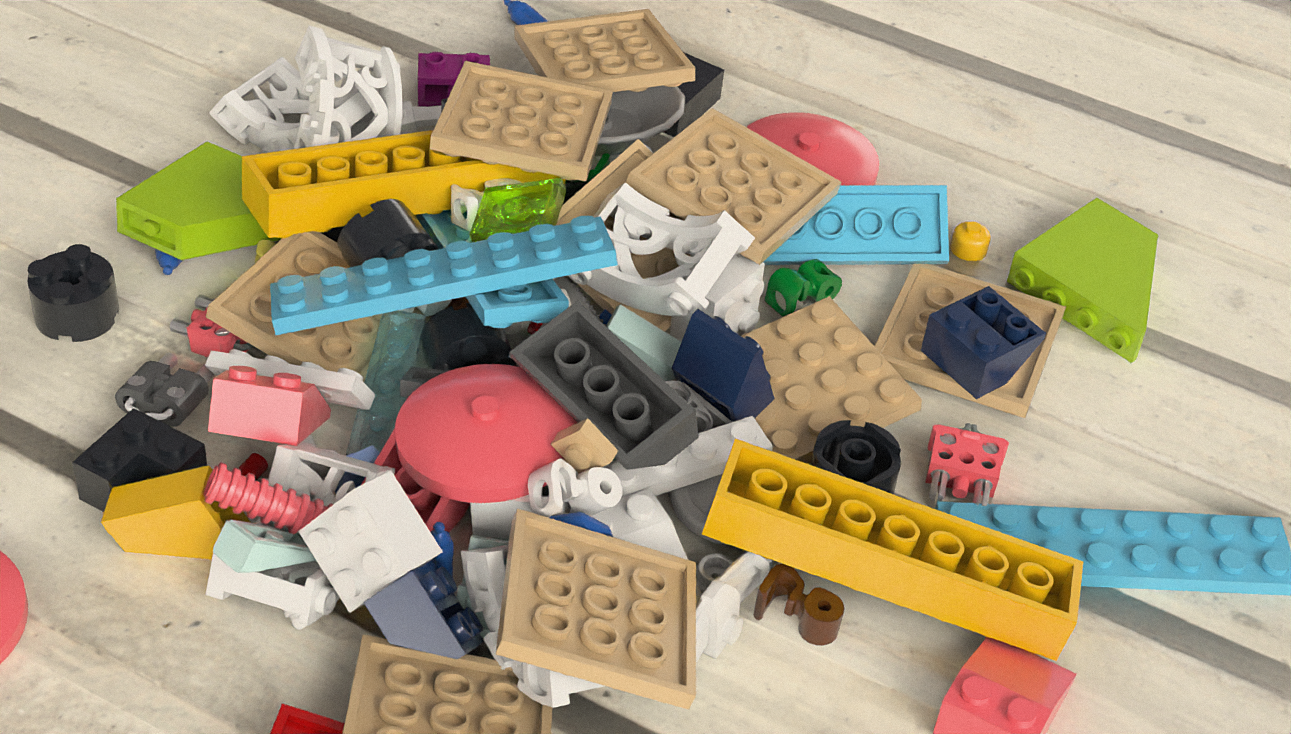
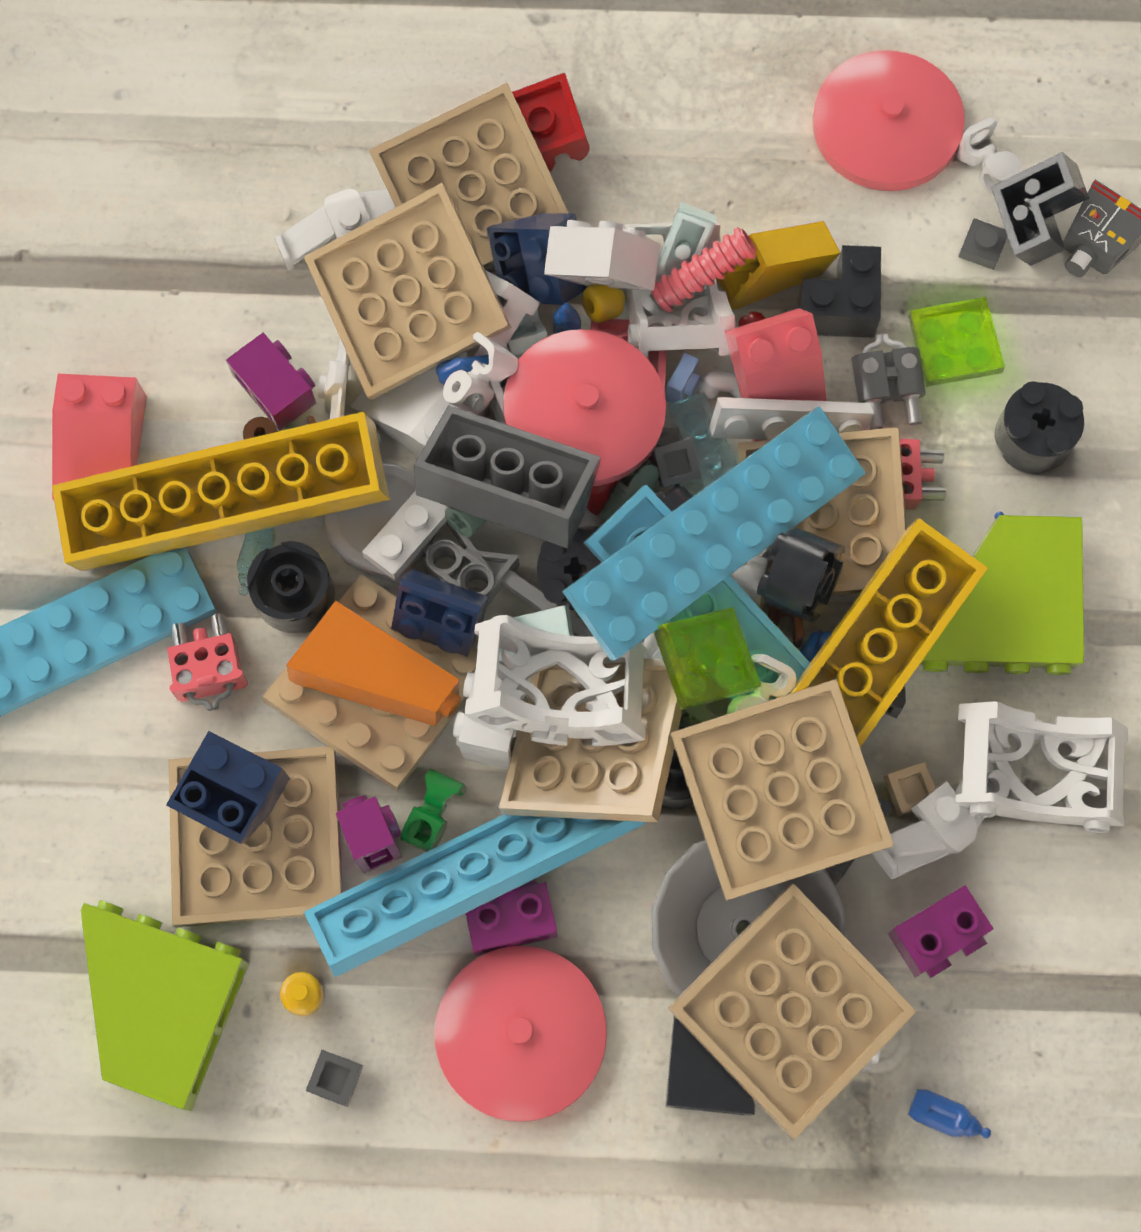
camera: 160 degrees right, 30 degrees up
(71, 393) = (956, 341): none -> clear neon green plate
(328, 59) = (1017, 741): white fence -> none
(584, 446) = (487, 398): tan plate -> none
(733, 169) = (530, 817): tan plate -> none
(786, 653) = (272, 381): none -> magenta brick
(813, 361) = (372, 668): none -> orange slope
(869, 276) = (370, 832): none -> magenta brick
(967, 187) = (334, 1078): none -> dark grey plate

